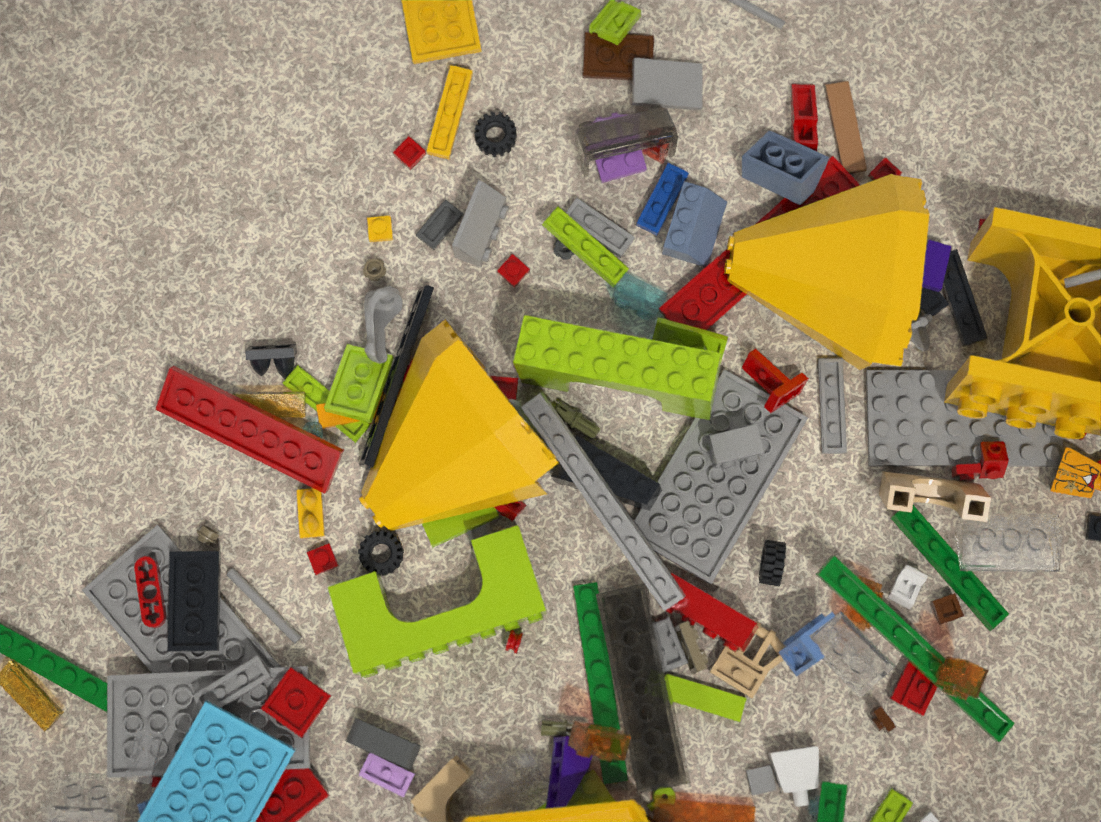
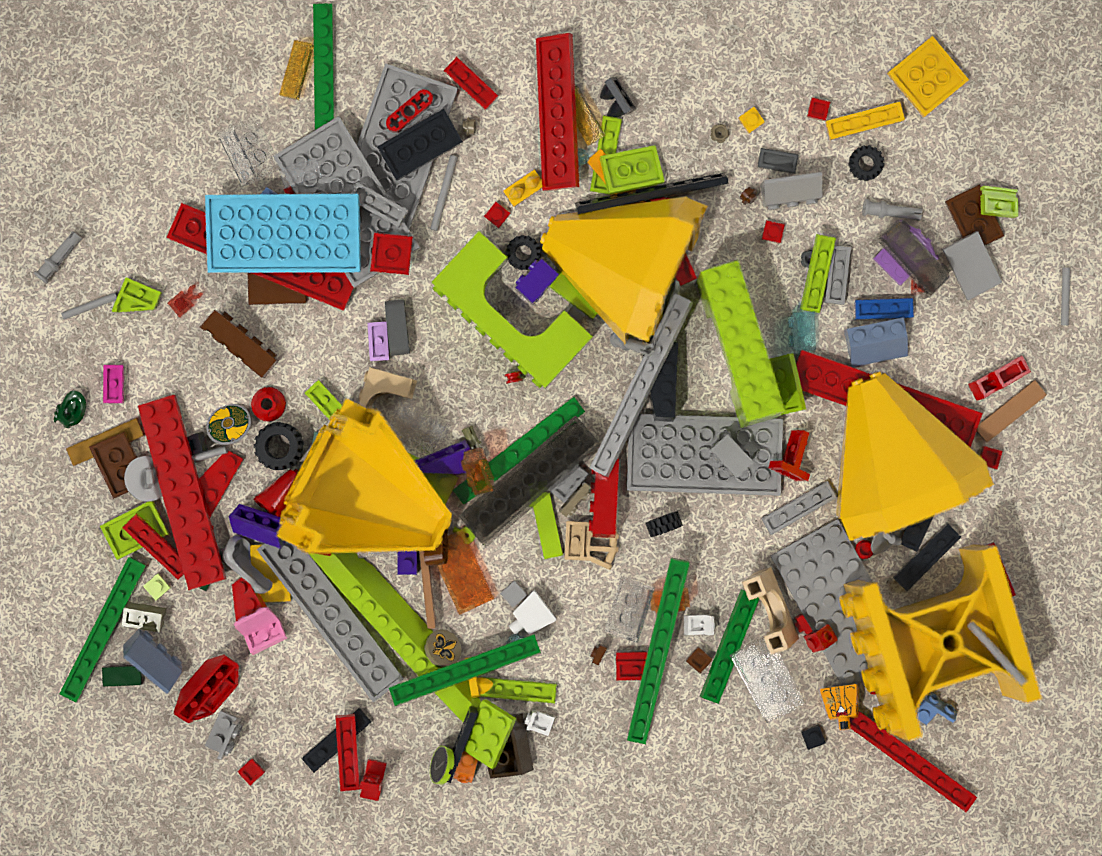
camera: 60 degrees right, 10 degrees up
(161, 507) = (471, 83): none -> red plate
(379, 310) = (692, 154): light grey hair -> none
(422, 557) = (536, 281): none -> dark purple brick
(459, 274) = (748, 195): none -> reddish brown plate
(511, 510) = (601, 326): red plate -> none
(551, 485) = (632, 344): none -> light grey pin
(554, 144) = (882, 209): none -> light grey pin
(577, 421) = (689, 336): olive axle -> none
(784, 167) = (953, 382): sand blue slope -> none
(800, 649) = (613, 575): medium blue bracket -> none
(915, 359) = (863, 549): none -> red plate
(935, 265) = (938, 526): dark purple tile -> none
(961, 678) = (653, 691): clear orange brick -> none

